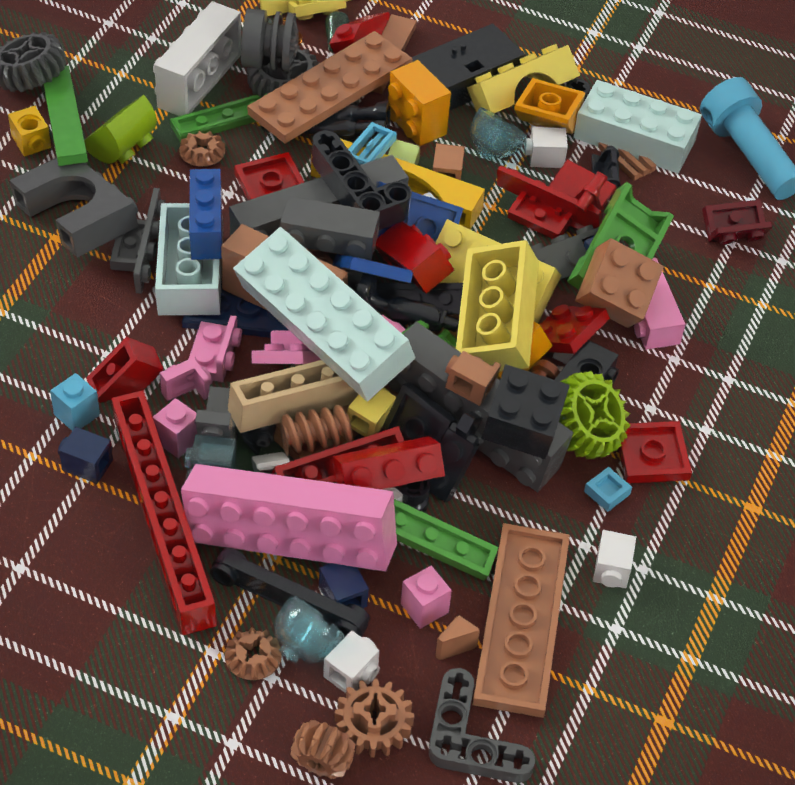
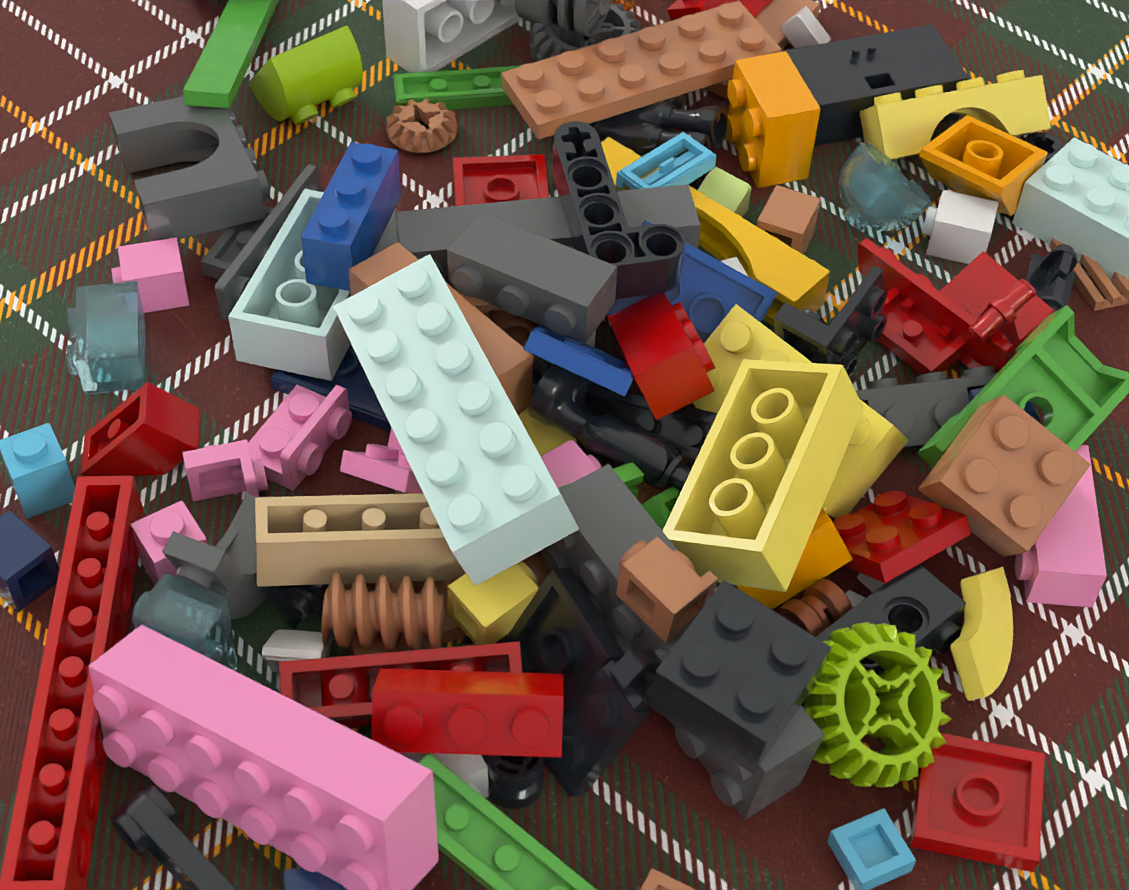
camera: 20 degrees right, 0 degrees up
(29, 131) = (179, 49): yellow brick -> none
(76, 318) = (108, 338): none -> clear light blue brick
(83, 276) = (157, 271): none -> bright pink brick
(414, 41) = (804, 30): none -> white slope
(502, 230) = (841, 342): none -> black bracket
(631, 369) = (987, 633): none -> light yellow tile

